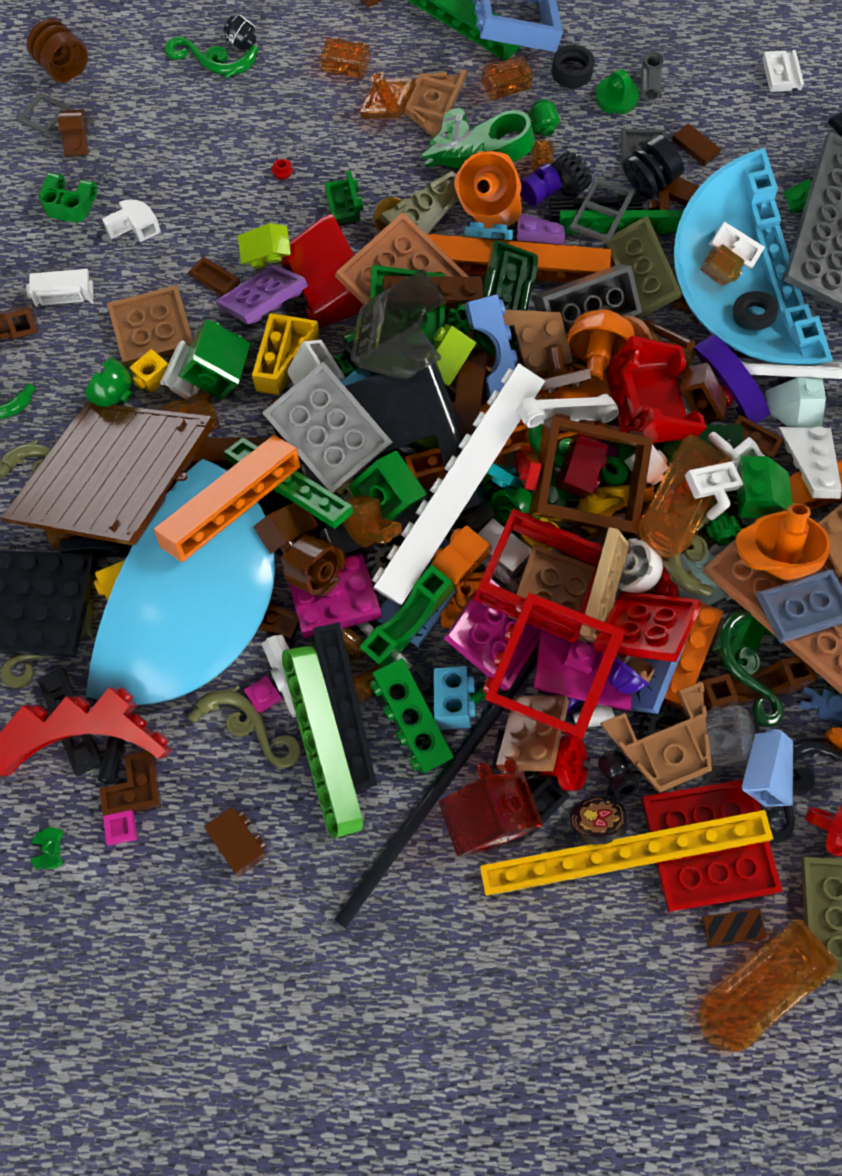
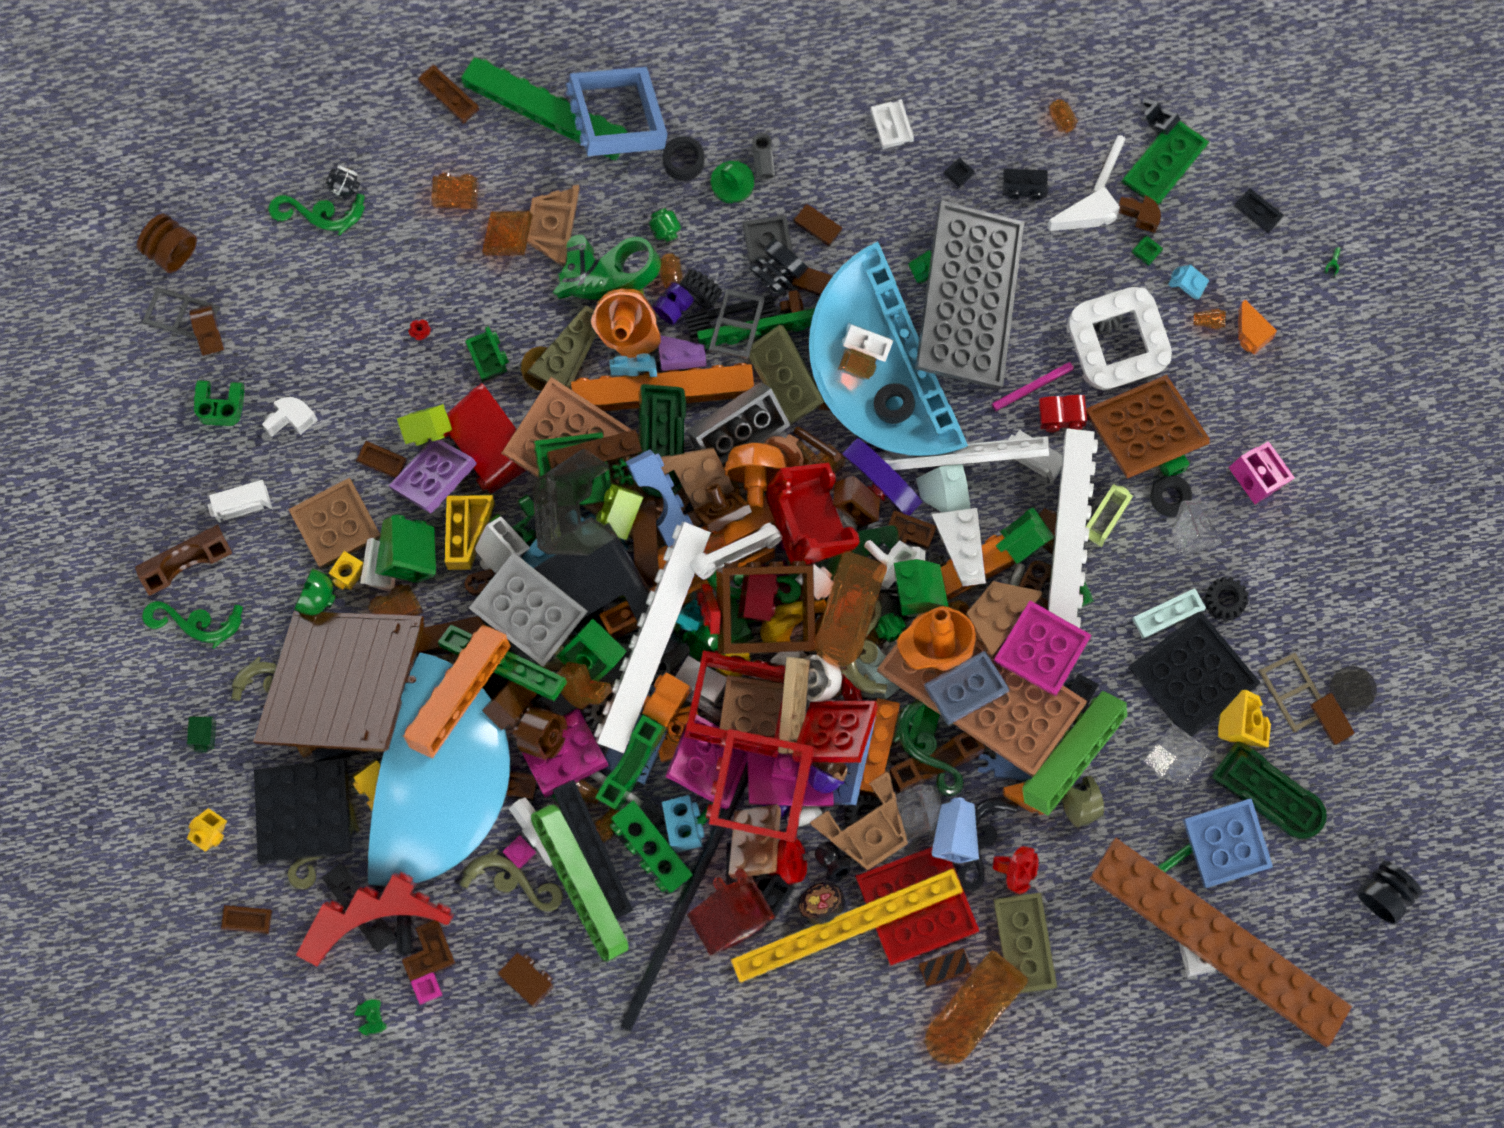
camera: 10 degrees left, 5 degrees up
(507, 77) = (620, 185): clear orange brick -> none
(714, 481) = (873, 592): white plate -> none

